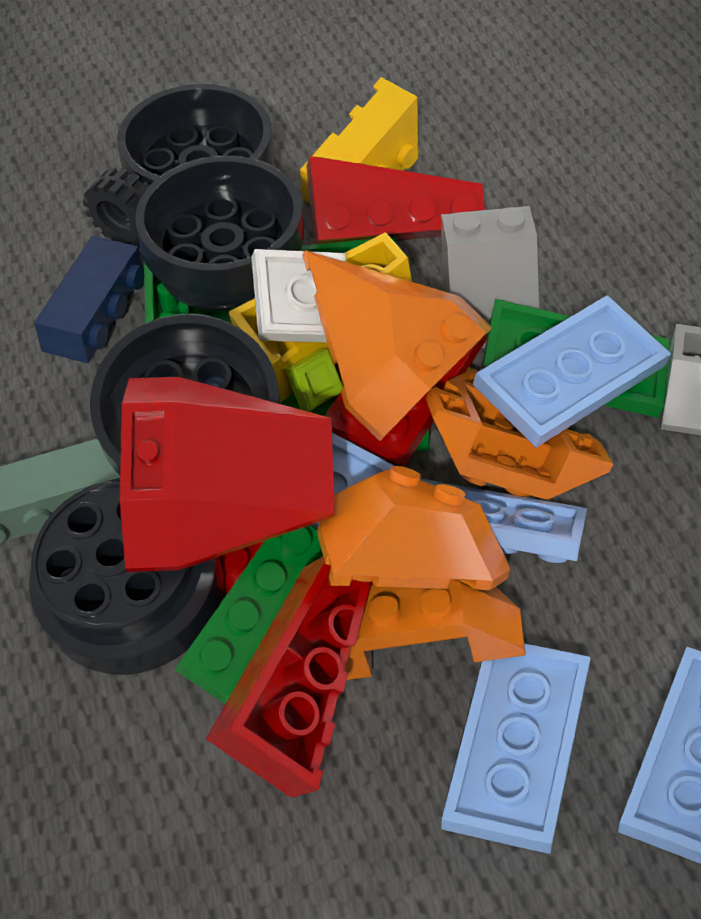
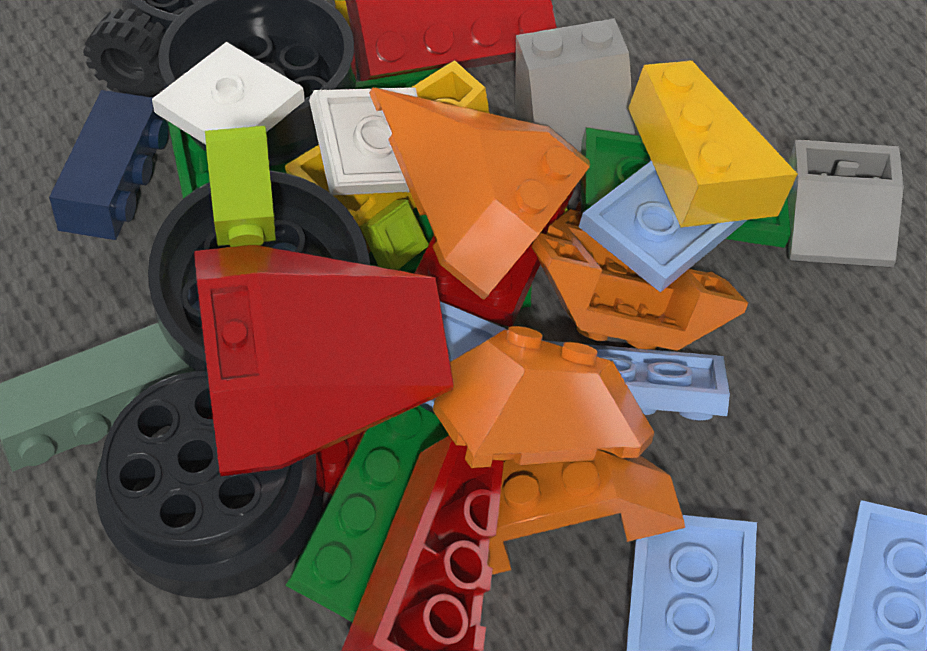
camera: 10 degrees left, 0 degrees up
(172, 325) = (240, 185): none -> lime slope
(186, 252) = (227, 93): none -> white plate
(592, 326) = (705, 149): none -> yellow wedge

